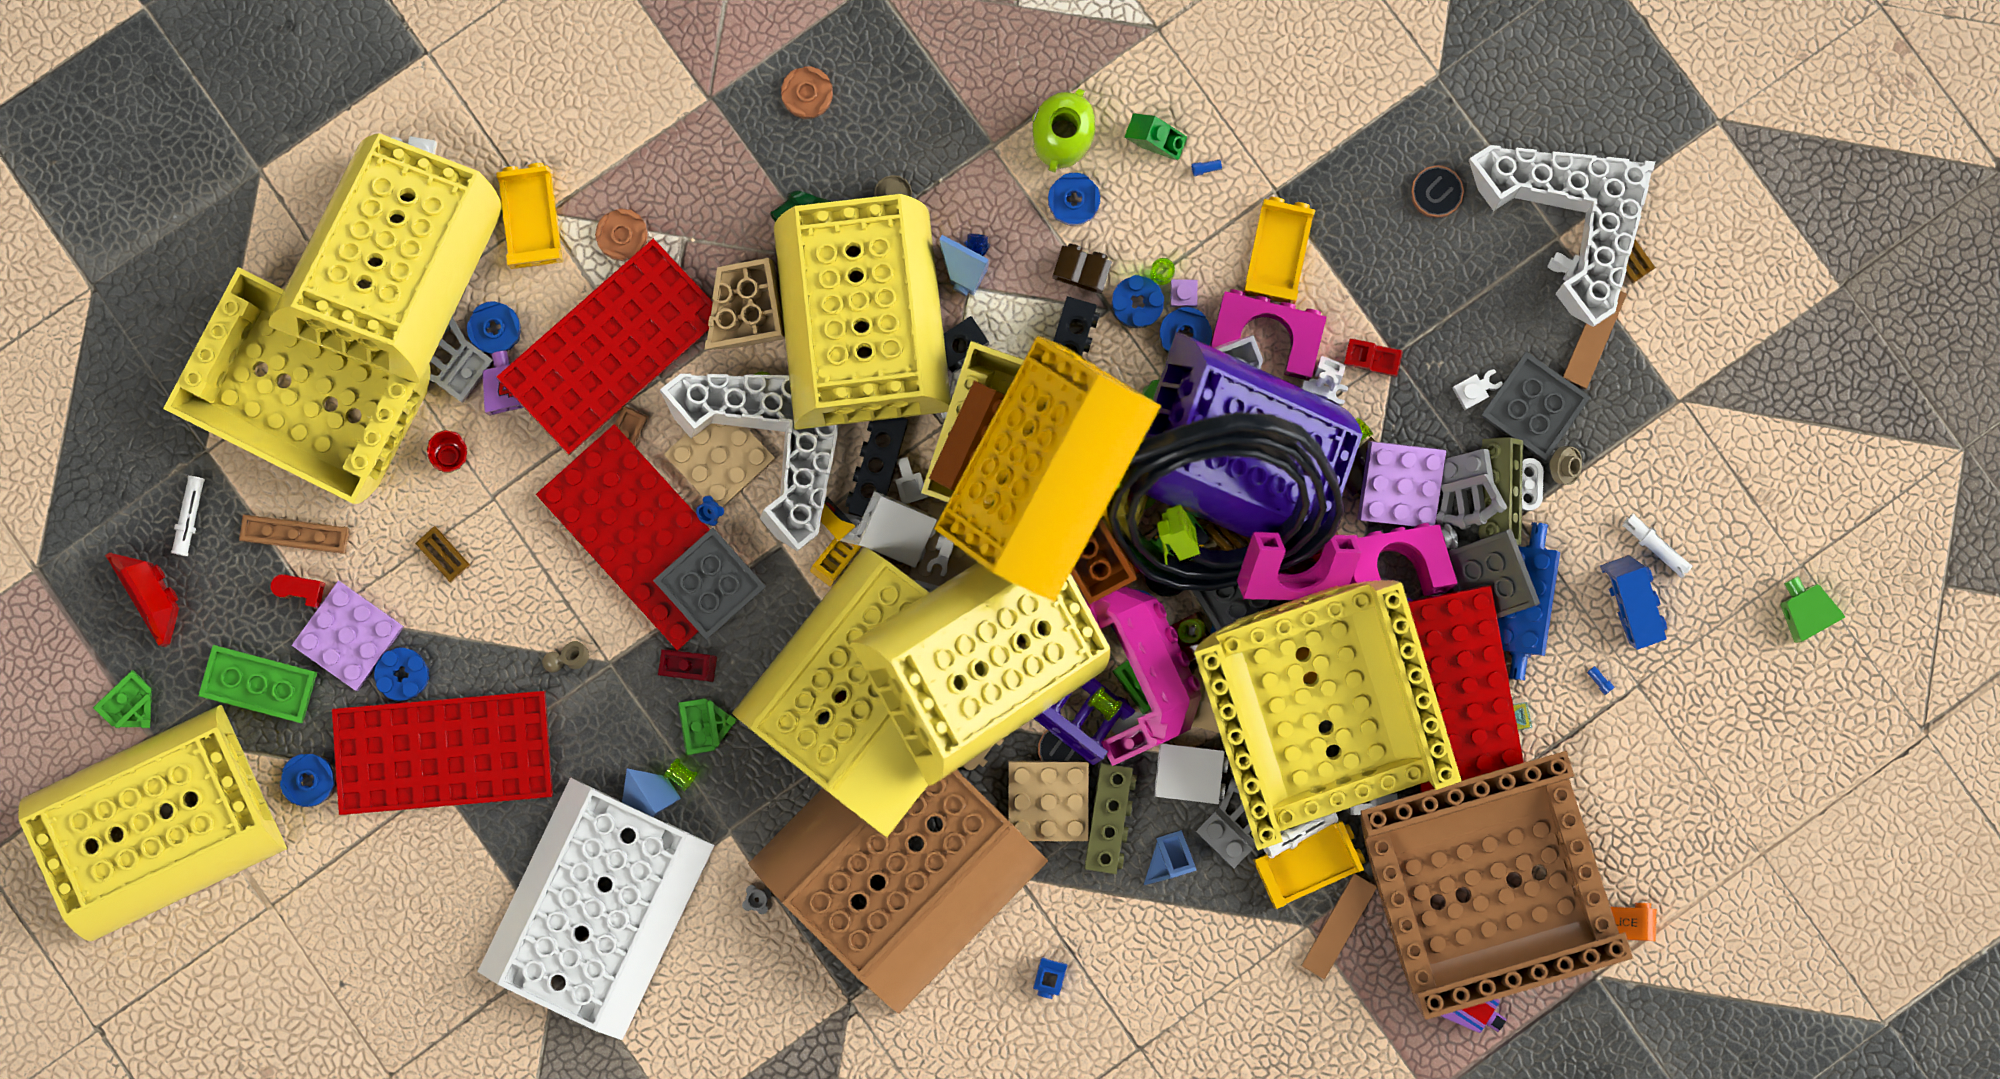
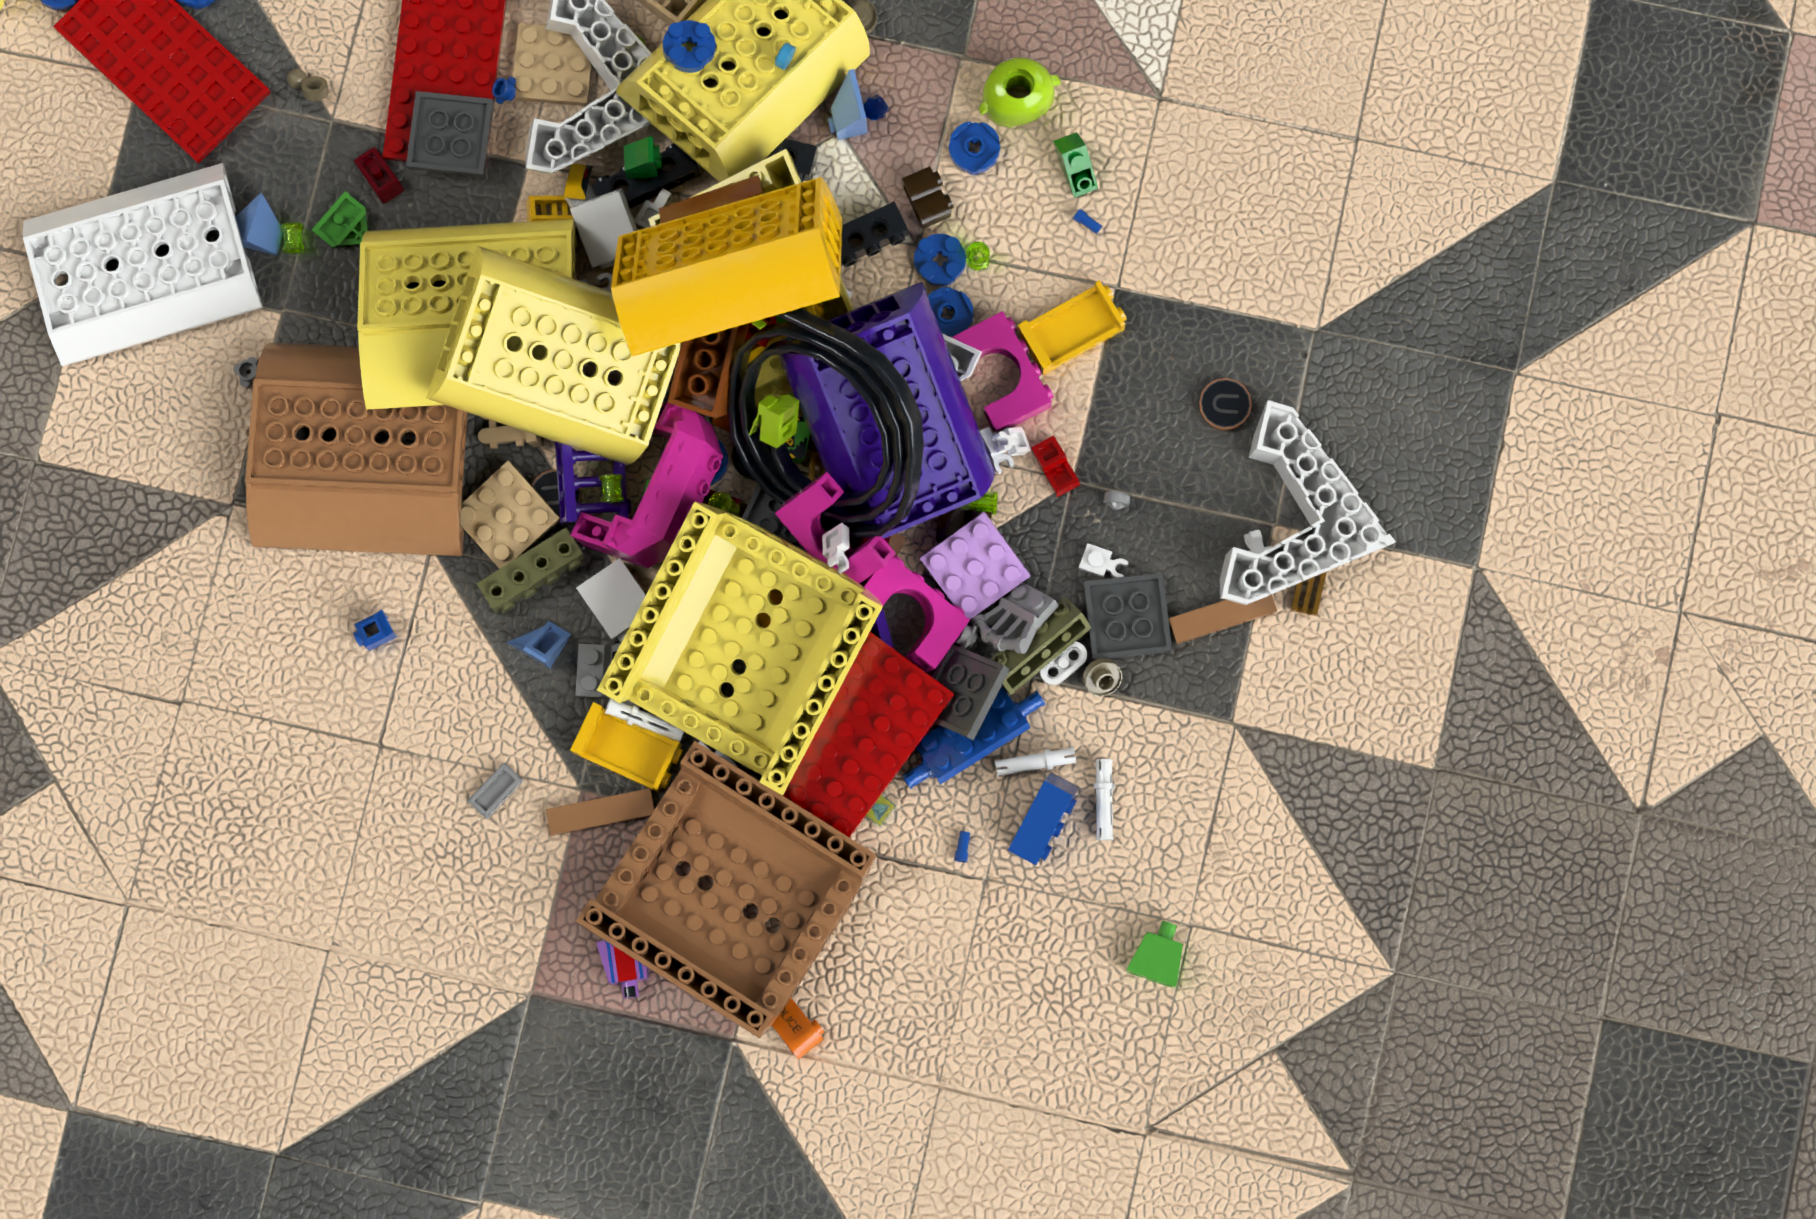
camera: 60 degrees right, 5 degrees down
(817, 328) = (693, 32): none -> blue plate
(867, 455) = (642, 159): none -> green slope
(895, 277) = (785, 56): none -> dark azure tile
(1183, 293) = (977, 287): lavender plate -> none
(1253, 991) = (495, 791): none -> light grey tile
(1307, 575) = (835, 543): none -> white plate
(1441, 336) = (1116, 499): none -> light grey tile
(1590, 561) = (1035, 761): none -> white pin

